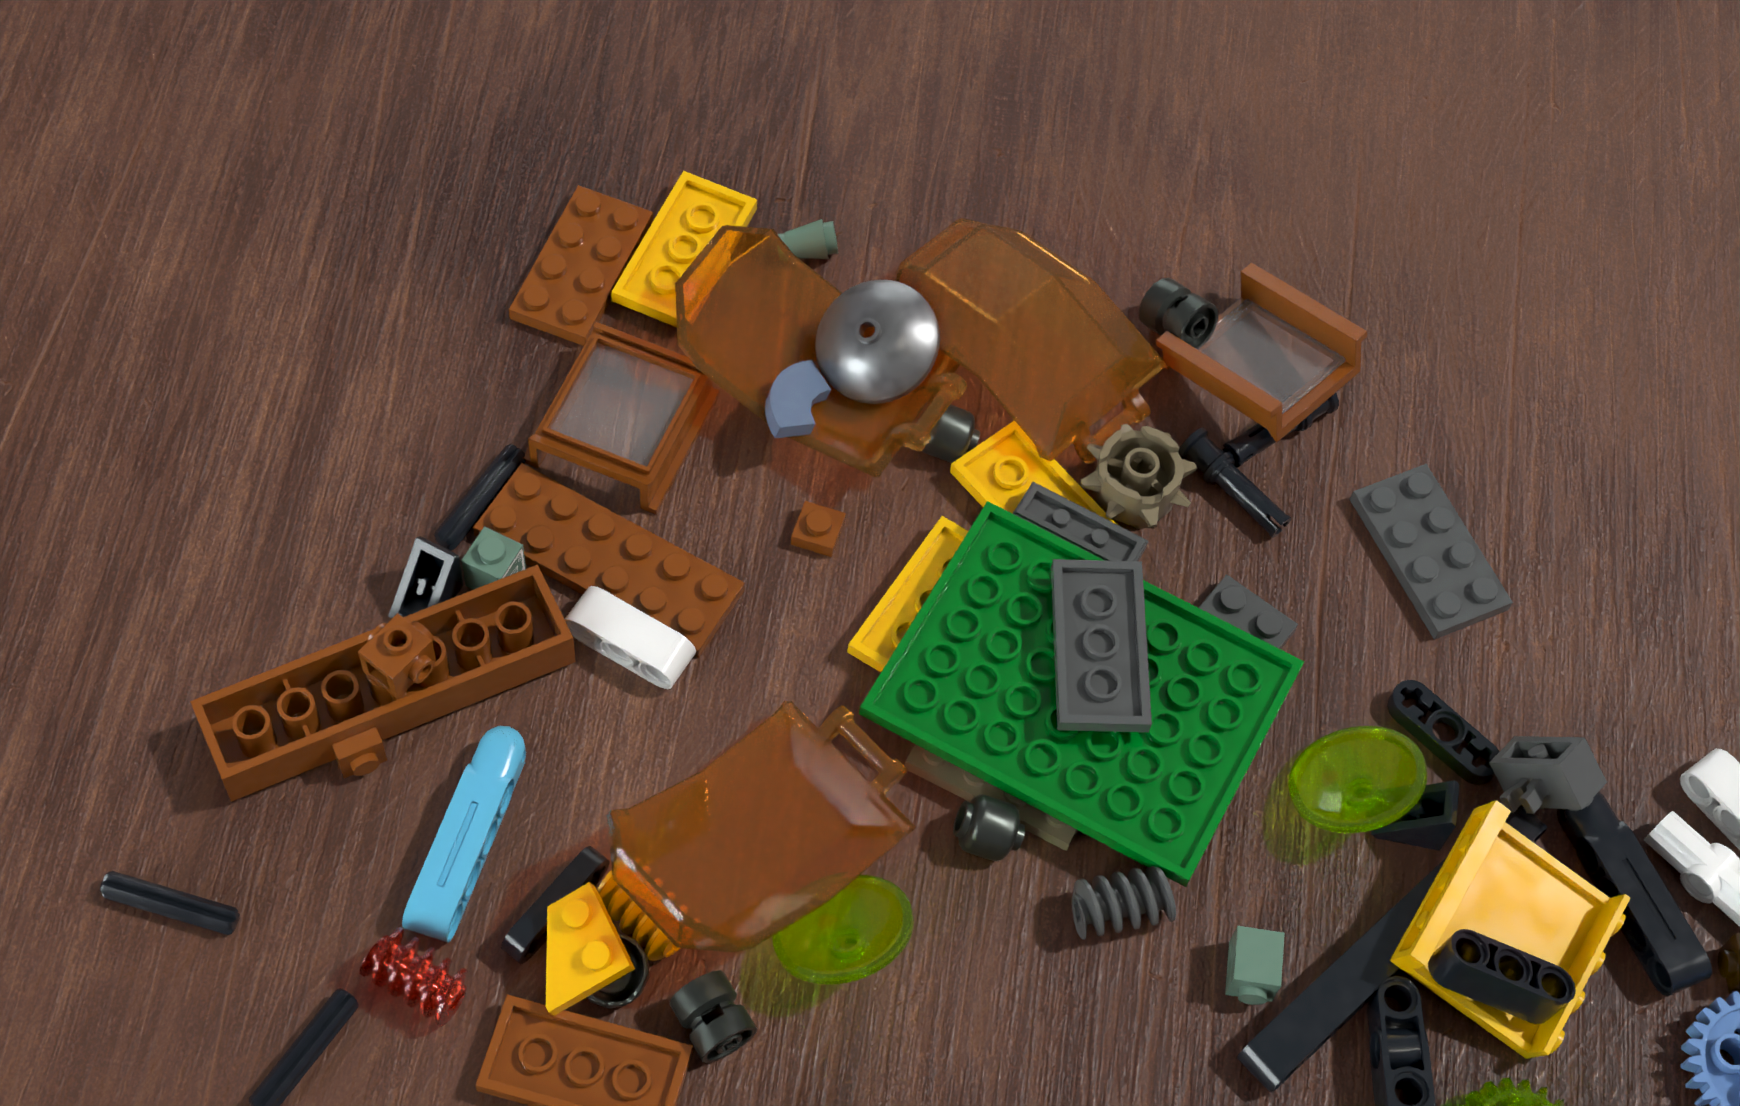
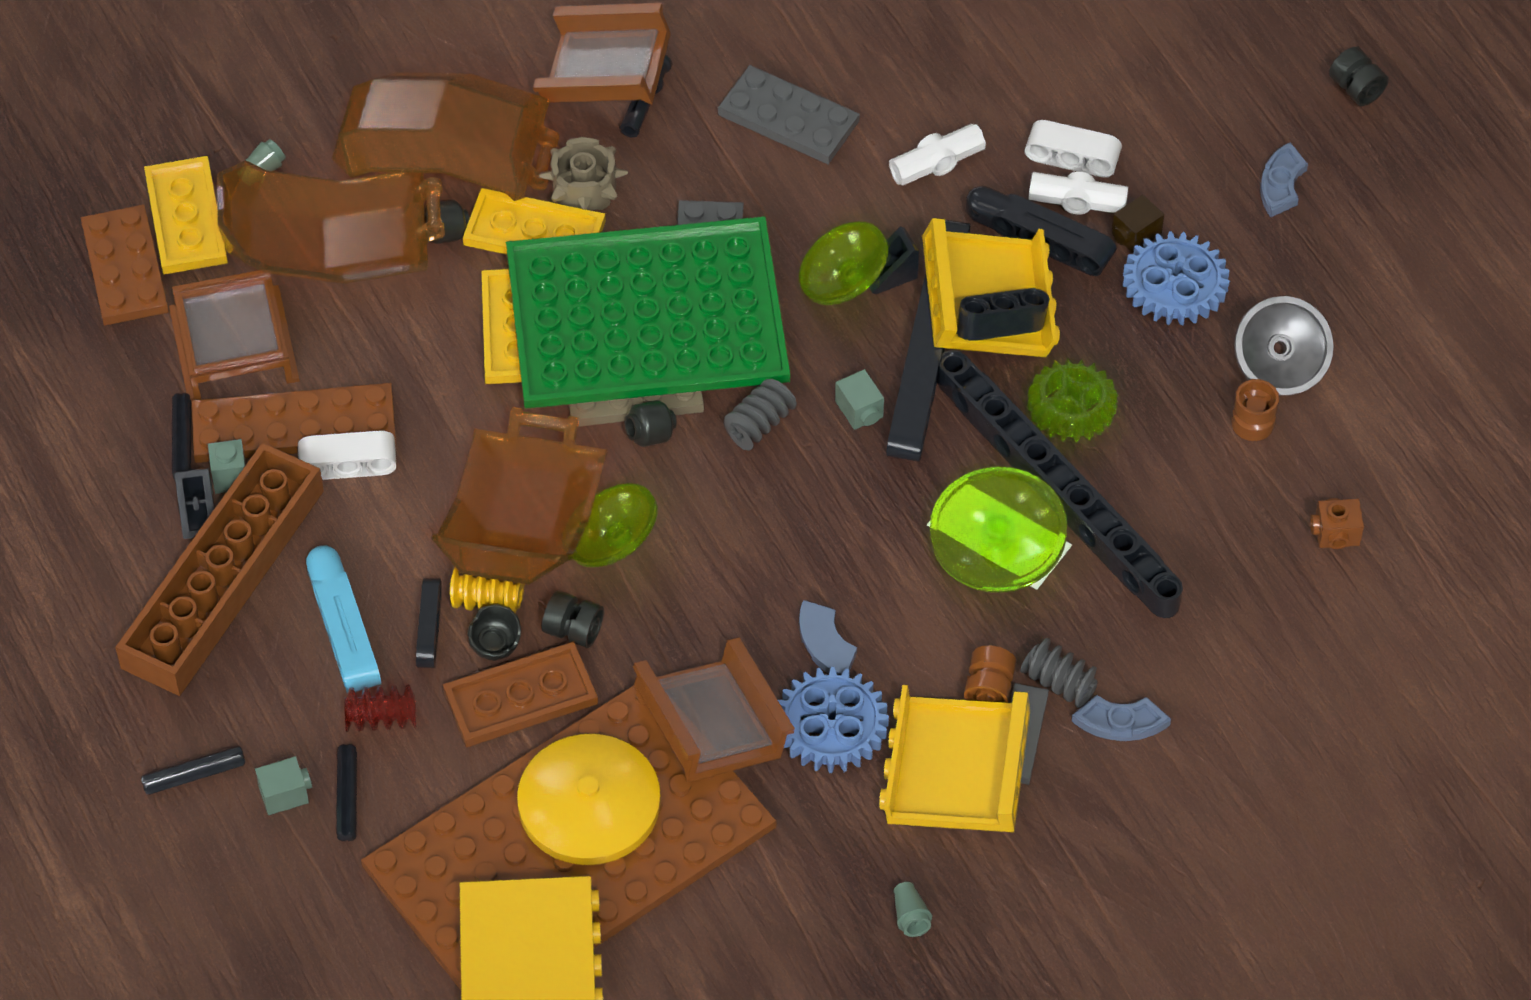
camera: 30 degrees left, 5 degrees down
(240, 994) = (283, 785): none -> sand green brick
(360, 753) = (238, 618): dark orange plate -> none
(398, 655) = (228, 536): dark orange brick -> none
(581, 949) = (470, 627): yellow wing -> none
(792, 398) = (336, 257): sand blue tile -> none
(818, 528) = (409, 326): dark orange plate -> none
(893, 357) = (374, 205): flat silver dish -> none
(1079, 525) = (572, 223): dark grey tile -> none
(1100, 646) = (640, 277): dark grey plate -> none
(1177, 310) = (527, 63): pearl dark grey wheel -> none
(1220, 469) = (627, 143): black pin -> none
(1442, 713) = (863, 201): black beam -> none
(1547, 773) = (950, 190): dark grey brick -> none
(1570, 711) = (937, 154): none -> white piece

